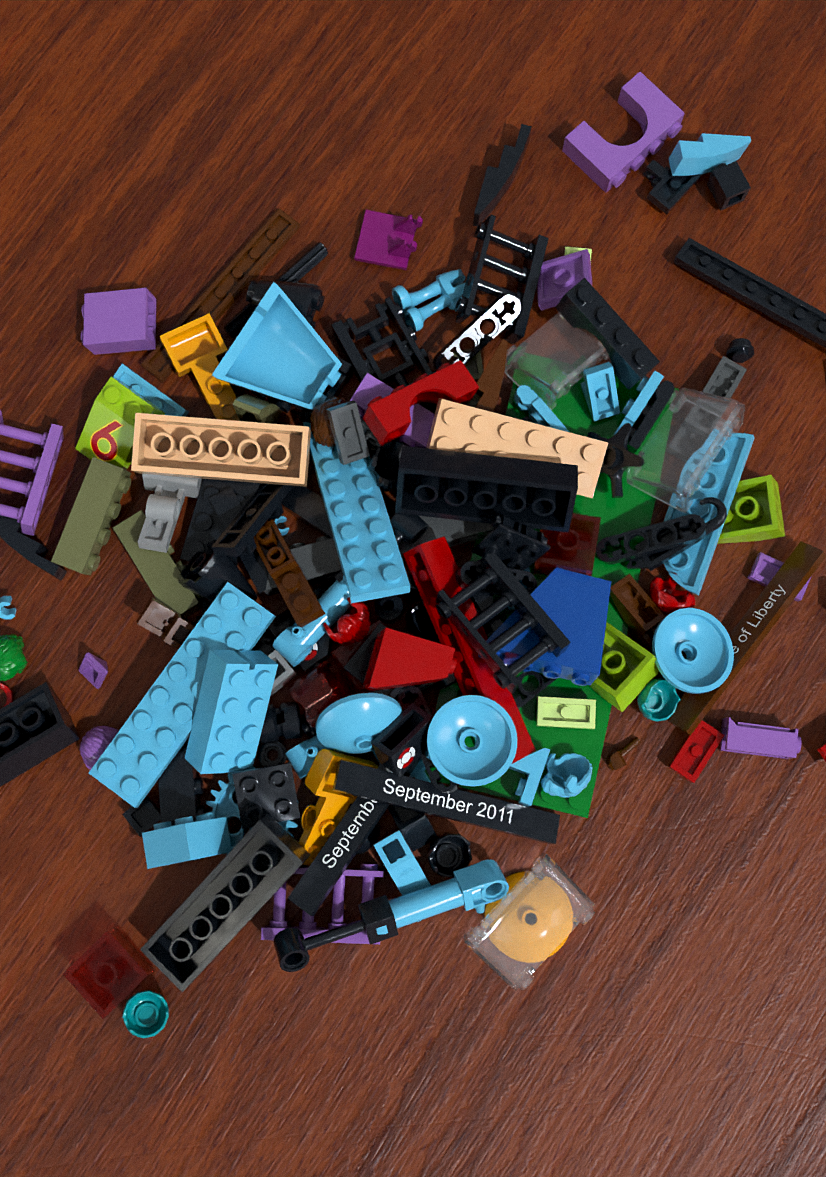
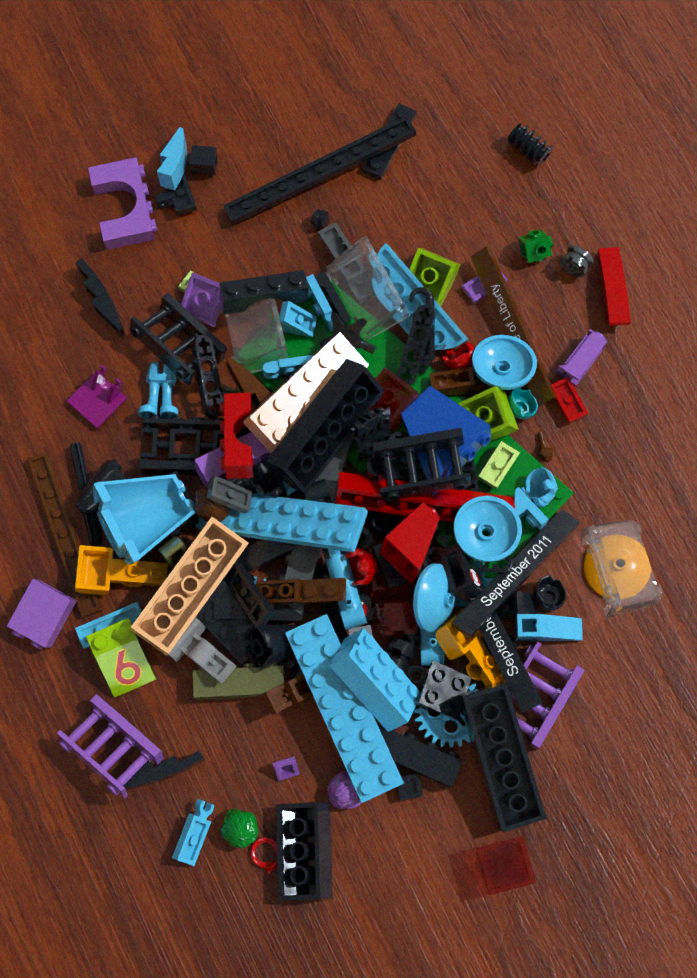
camera: 60 degrees left, 5 degrees down
(92, 517) = (174, 708): olive brick -> none
(145, 1014) = (546, 856): teal hair -> none
(186, 840) = (448, 754): medium azure brick -> none
(382, 917) = (569, 657): piece -> none

